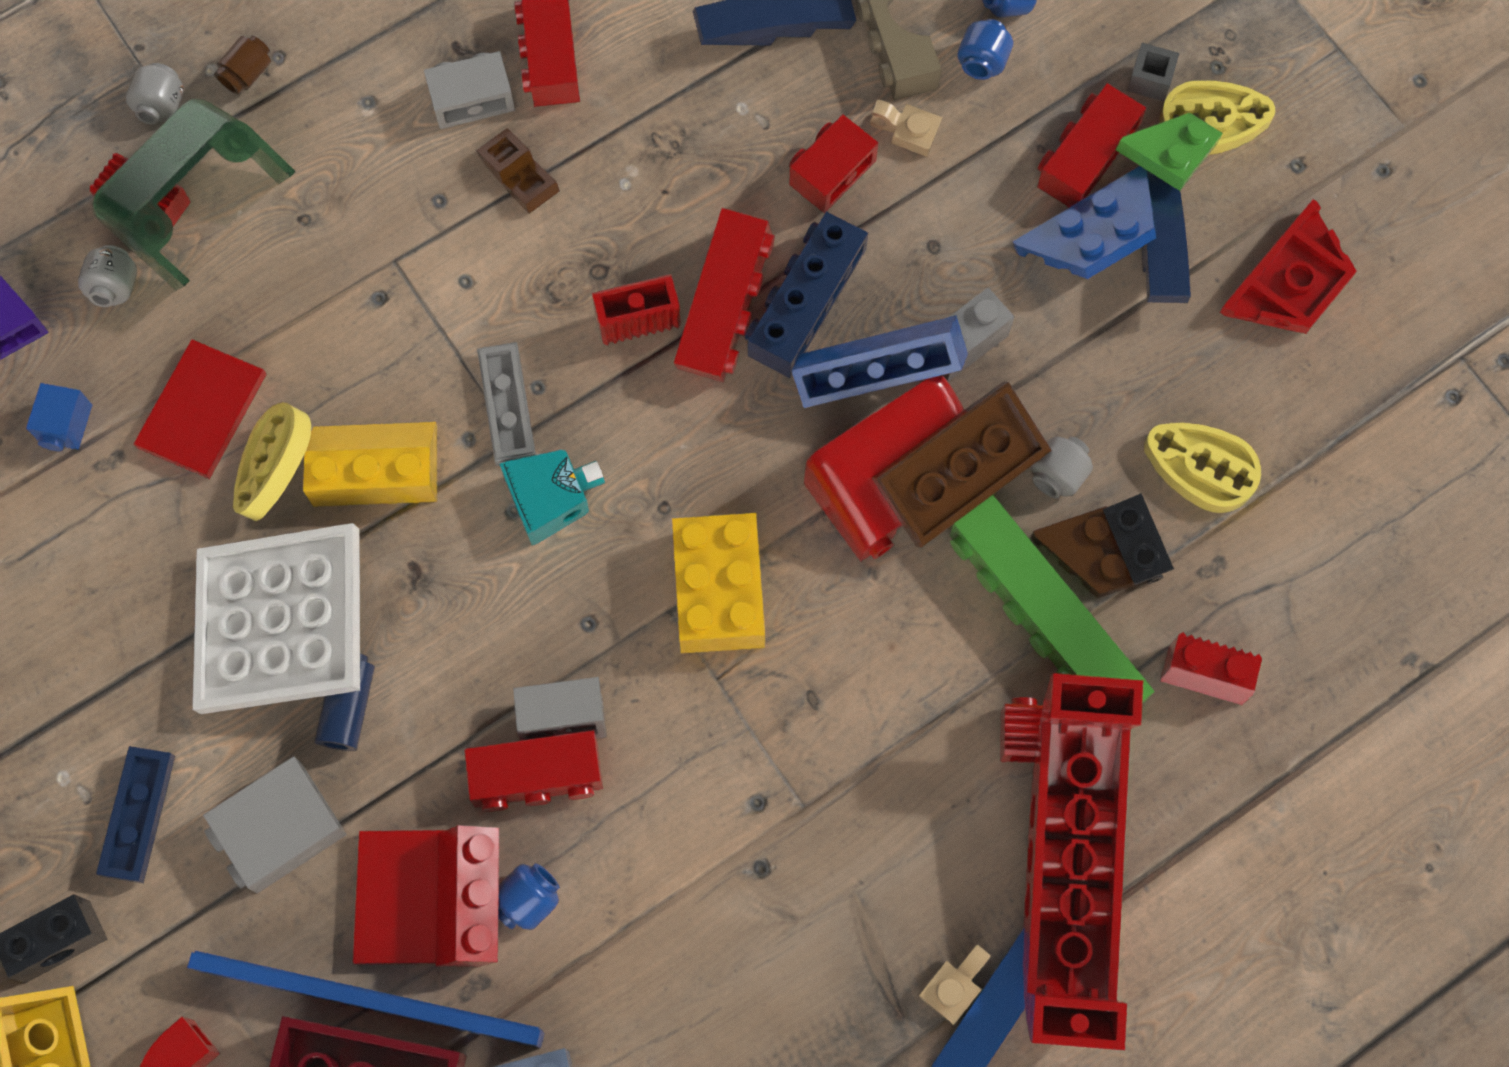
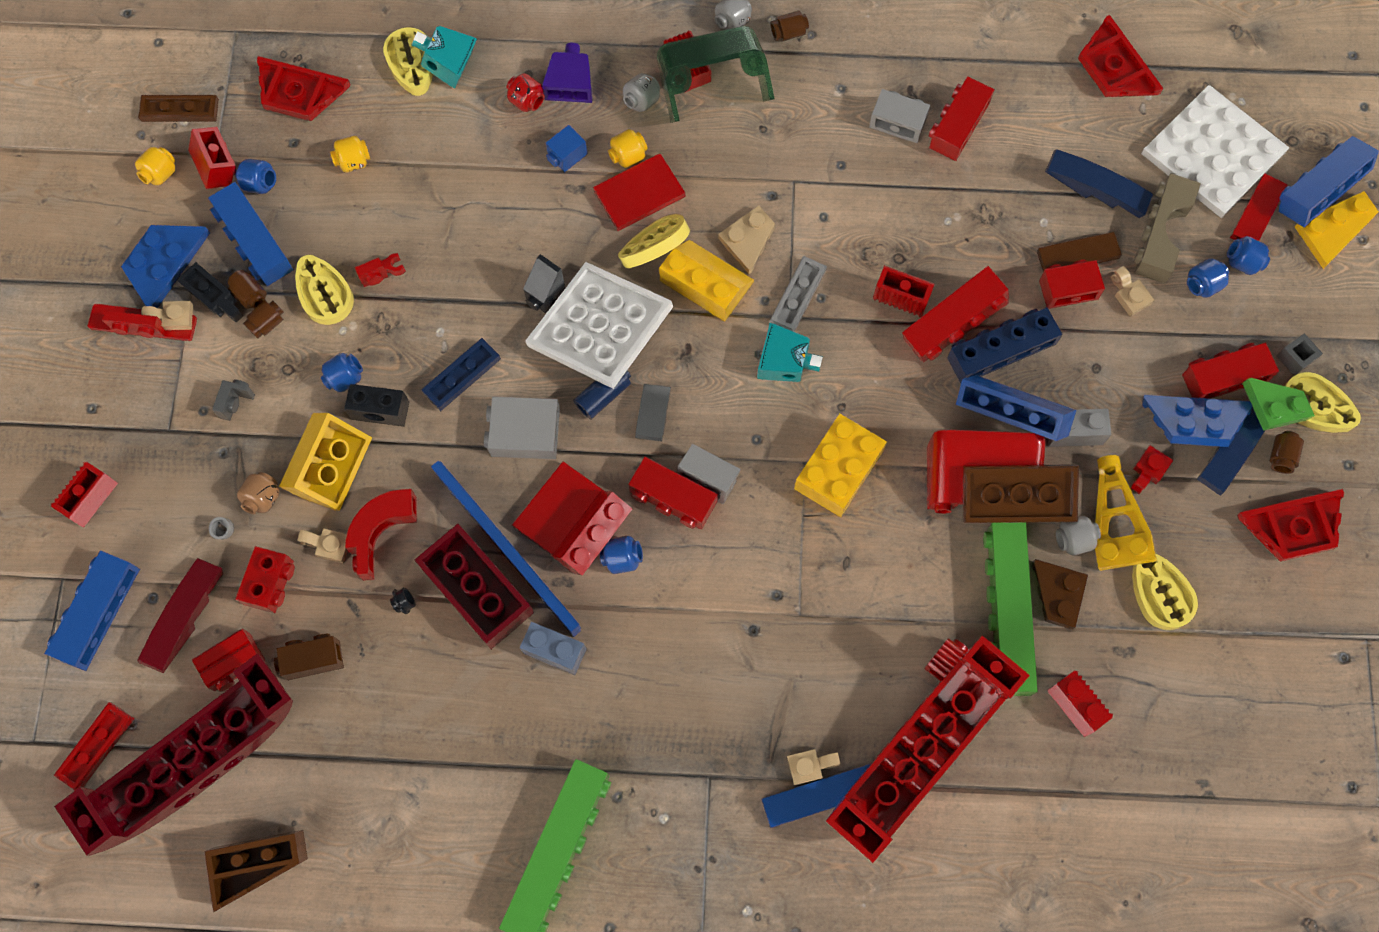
camera: 40 degrees right, 0 degrees up
(143, 362) = (627, 148): none -> yellow head
(164, 618) = (543, 284): none -> slope
(388, 373) = (748, 237): none -> tan wing
(431, 683) = (653, 412): none -> dark grey slope
(517, 170) = (894, 176): reddish brown slope -> none
(823, 104) = (1098, 247): none -> reddish brown tile
(1085, 323) = (1151, 468): none -> red plate
(1127, 445) = (1127, 549): none -> yellow plate
(1138, 540) = (1091, 605): black hinge -> none
(1221, 198) = (1286, 452): none -> reddish brown brick

